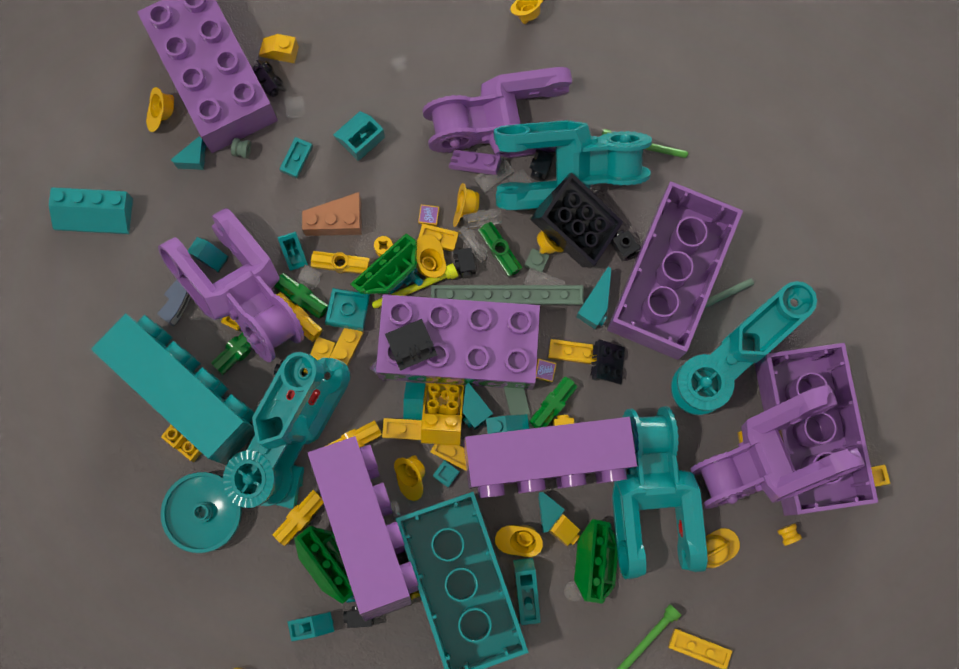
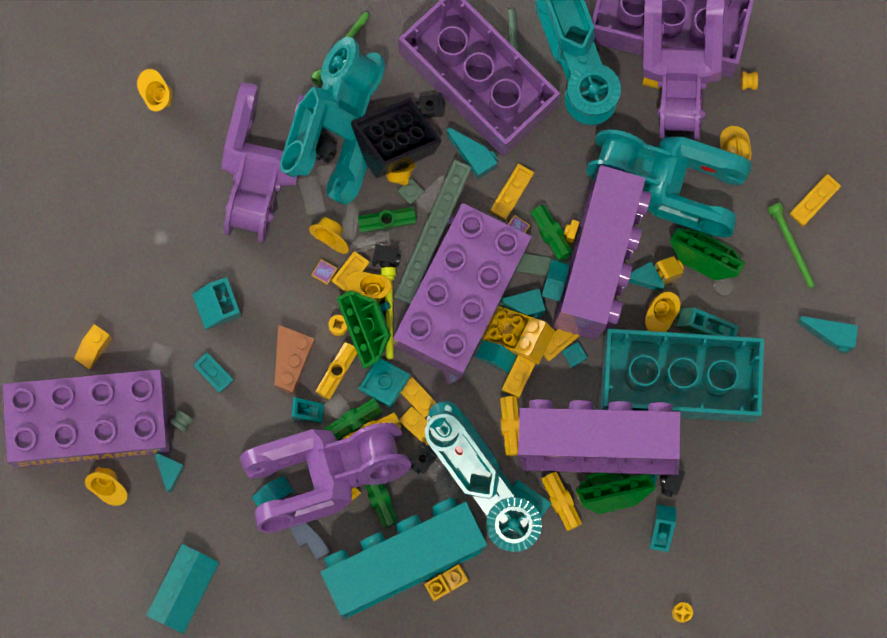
camera: 70 degrees left, 0 degrees up
(199, 513) = (521, 587): teal dish -> none
(264, 72) = (126, 365): black hinge -> none
(409, 476) = (566, 387): yellow piece -> none
(411, 344) = (454, 328): black hinge -> none
(475, 162) = (292, 207): medium lavender hinge -> none
(608, 362) = (533, 166): black hinge -> none

